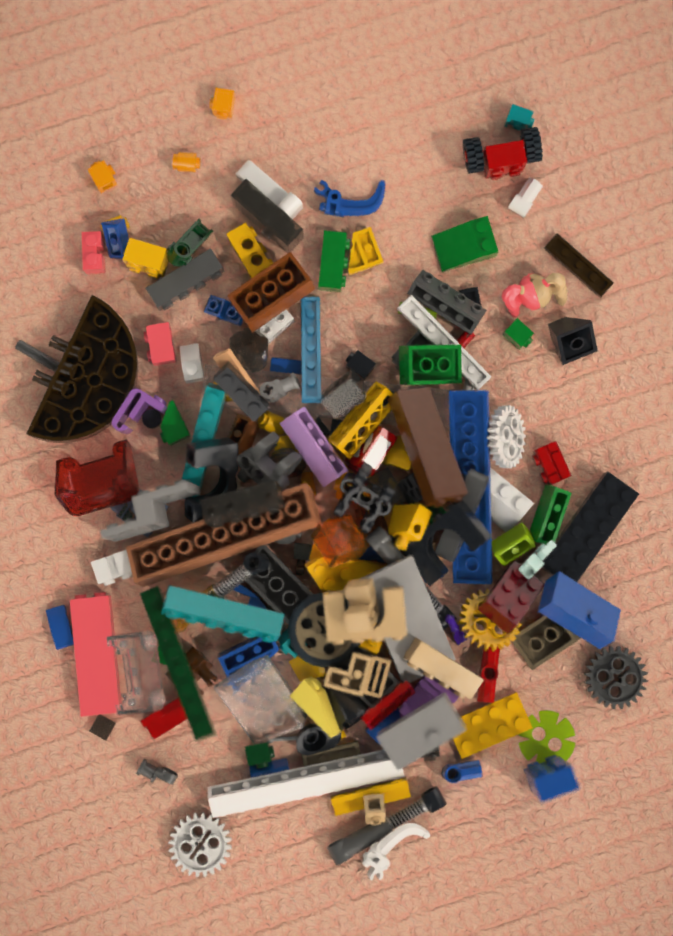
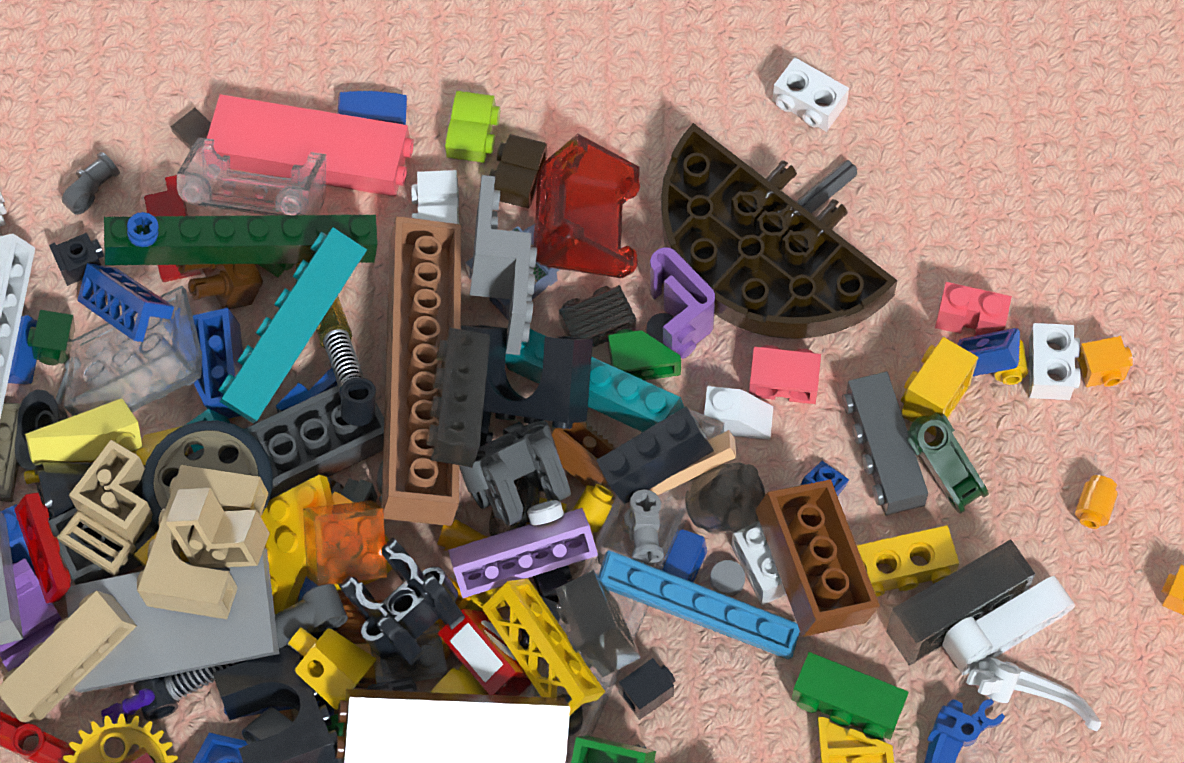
camera: 110 degrees right, 20 degrees down
(56, 565) = (471, 126): none -> lime brick
(77, 528) = (519, 169): none -> dark brown brick
(110, 209) = (1046, 361): none -> white brick
(157, 456) = (597, 315): none -> clear smoke brick
(199, 719) = (142, 219): none -> blue bush
(213, 760) = (74, 255): none -> black brick
(224, 718) = (125, 292): none -> blue fence
(285, 342) = (727, 578): none -> light grey tile
(288, 441) = (545, 512): none -> white tile
(299, 184) = (1001, 678): none -> white piece

